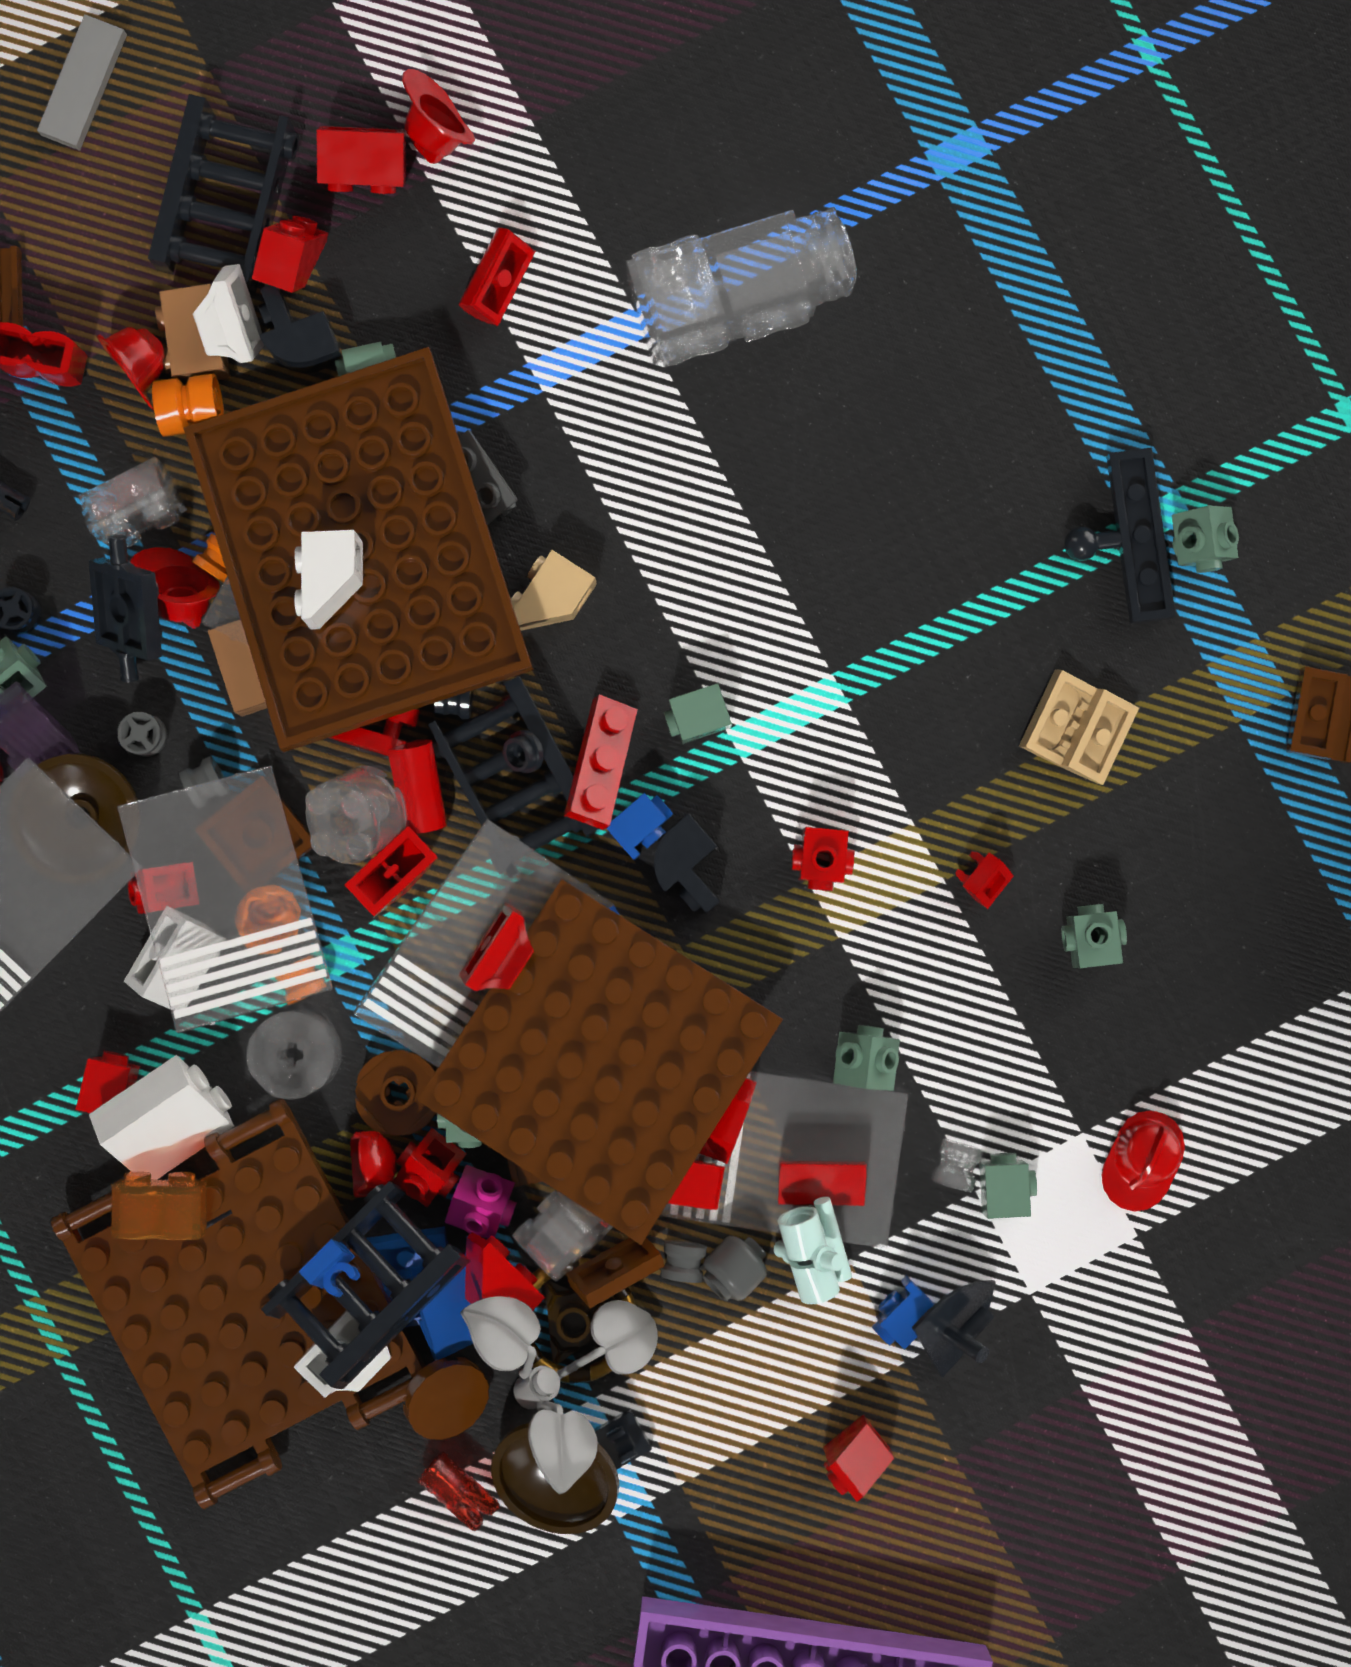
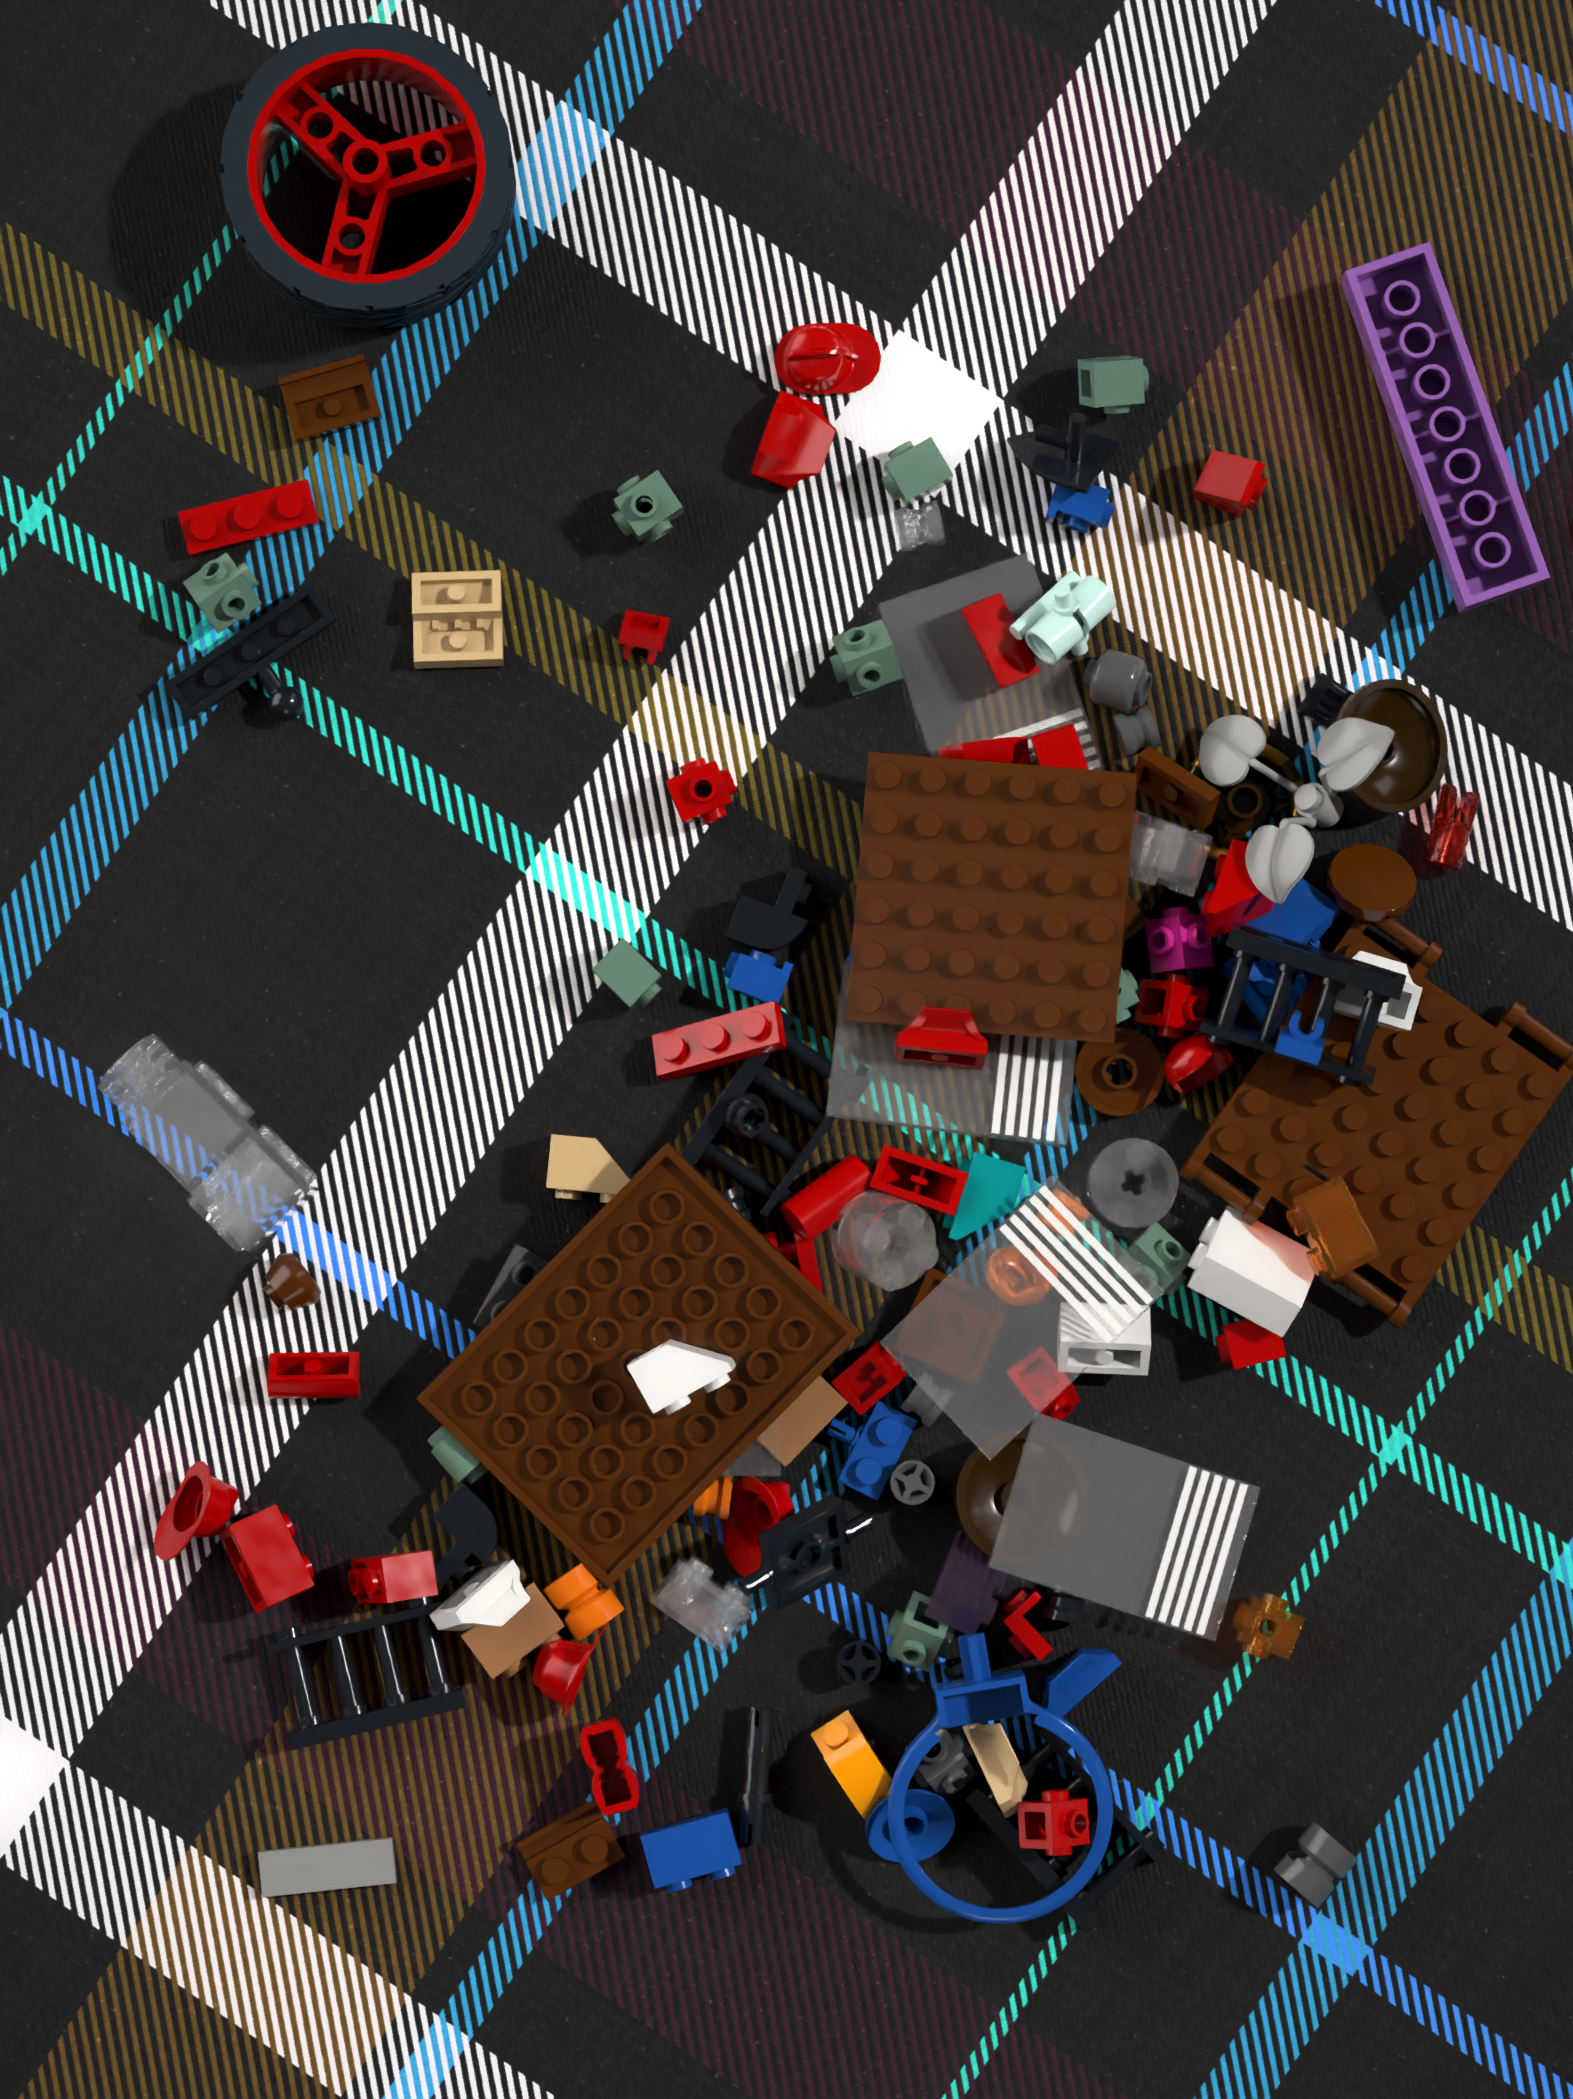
camera: 120 degrees left, 0 degrees up
(189, 716) = (872, 1448): none -> blue plate
(218, 1043) = (1161, 1257): none -> sand green brick
(247, 741) = (869, 1378): none -> red bracket
(350, 925) = (987, 1194): none -> teal slope
(584, 296) = (291, 1283): none -> reddish brown cone
(997, 1399) = (1112, 382): none -> sand green brick
(1086, 1093) = (793, 442): none -> red slope
(1256, 594) = (248, 518): none -> red plate

